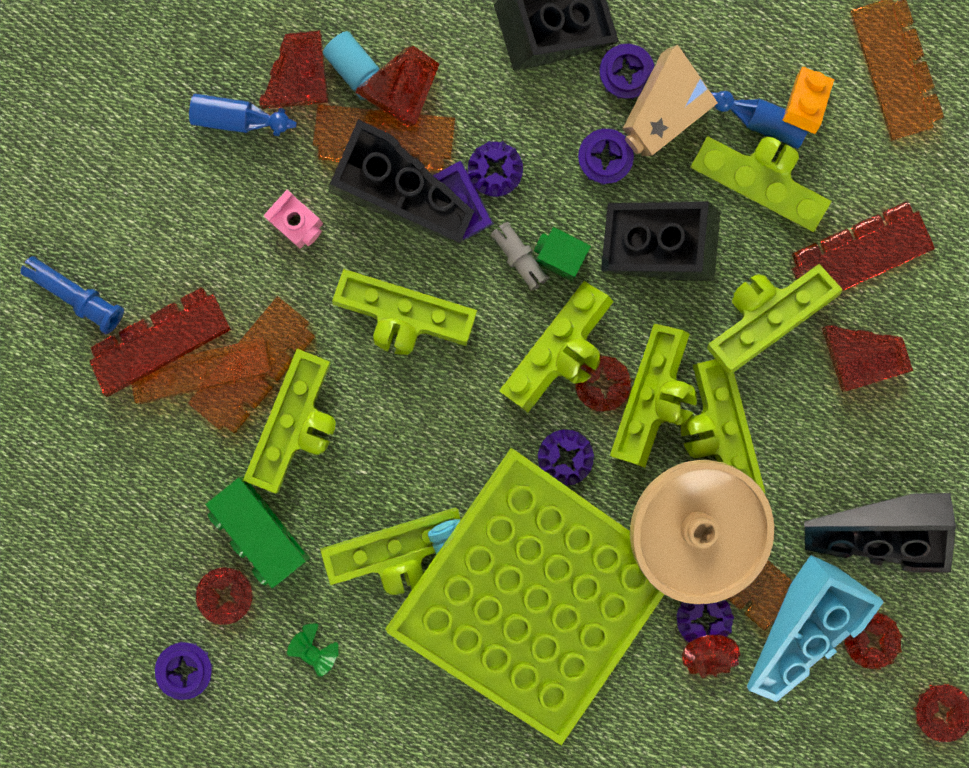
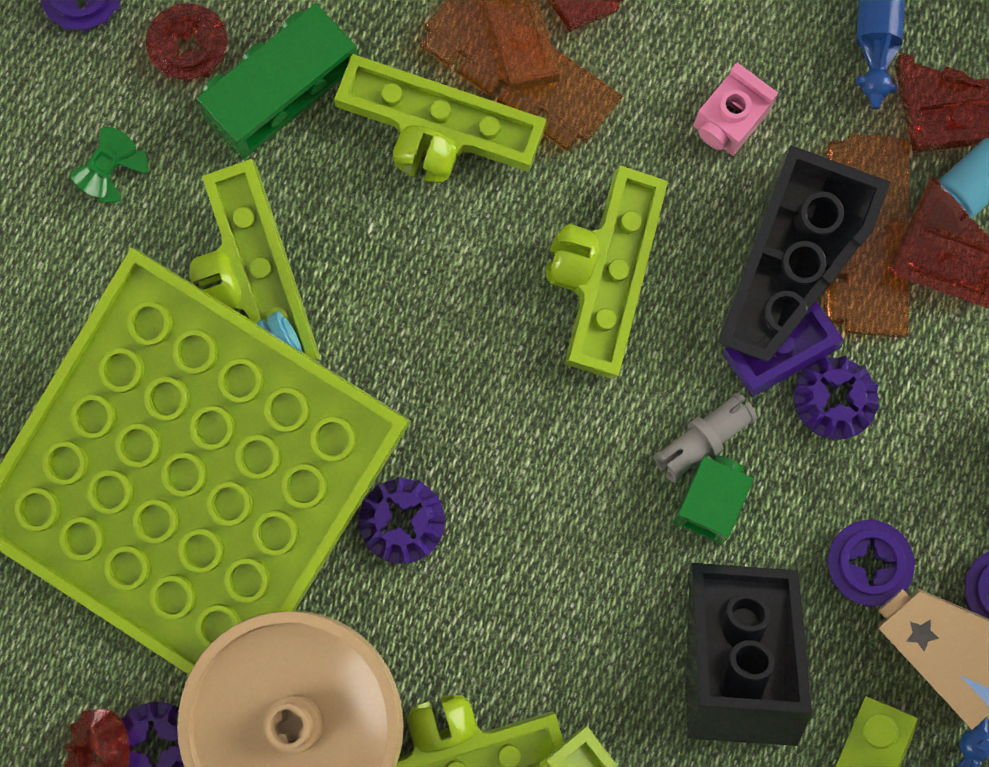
camera: 85 degrees right, 10 degrees down
(560, 349) = (566, 503): lime plate -> none
(615, 395) = (500, 592): clear red gear -> none
(654, 396) = (500, 650): lime plate -> none

